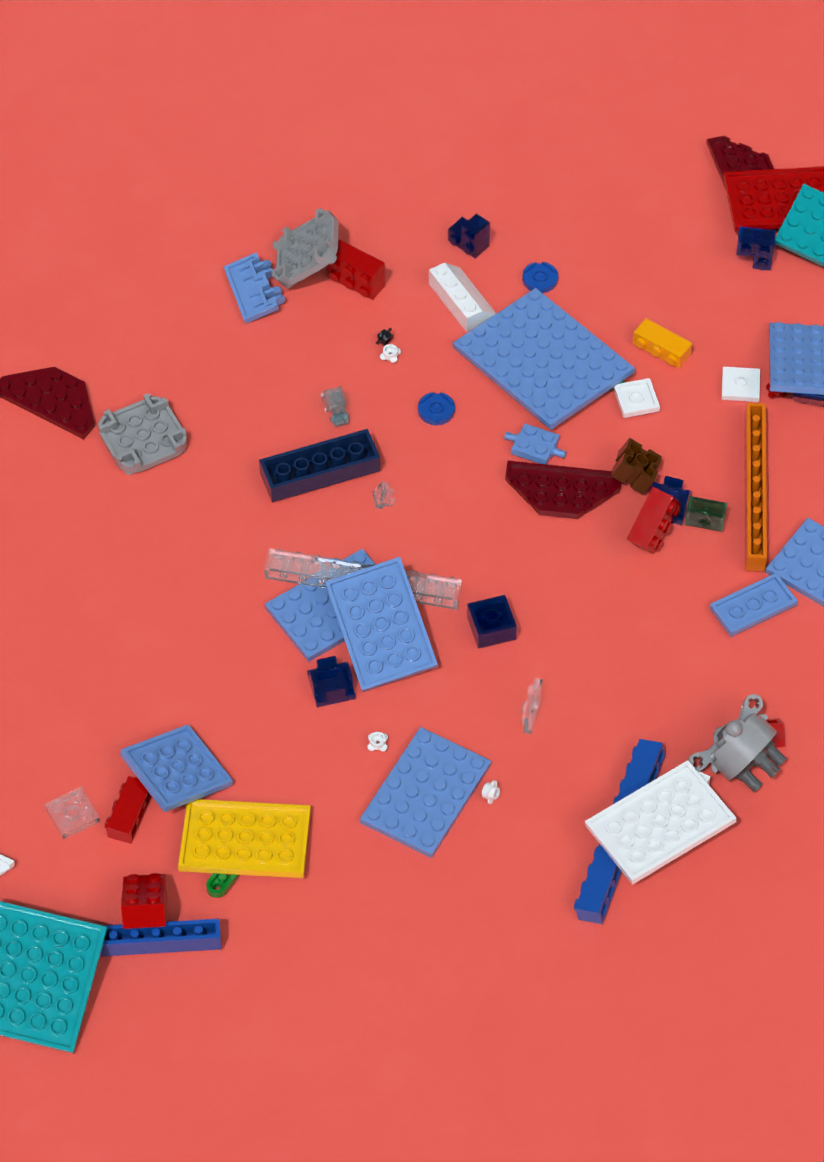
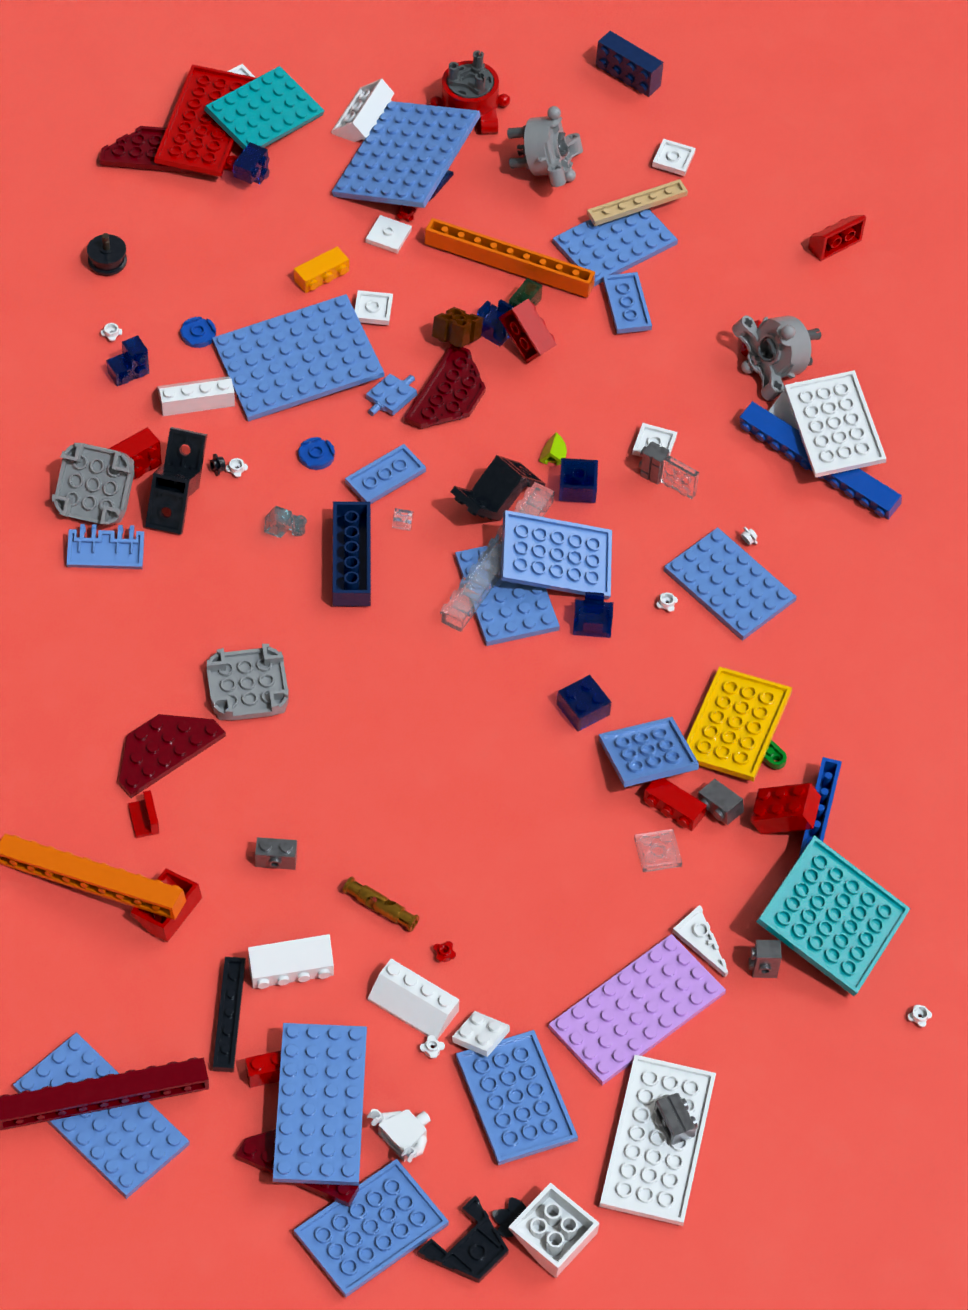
camera: 75 degrees left, 0 degrees up
(141, 847) = (721, 801): none -> flat silver brick
(219, 701) = (583, 703): none -> clear blue brick
(341, 307) = (176, 480): none -> black bracket
(432, 467) = (385, 474): none -> medium blue plate
(445, 554) = (496, 488): none -> black bracket
(507, 214) = (111, 331): none -> white plate
(526, 595) = (554, 450): none -> lime brick
(543, 669) = (653, 462): none -> brick
(576, 677) = (656, 434): none -> white plate
(593, 179) = (107, 254): none -> black wheel

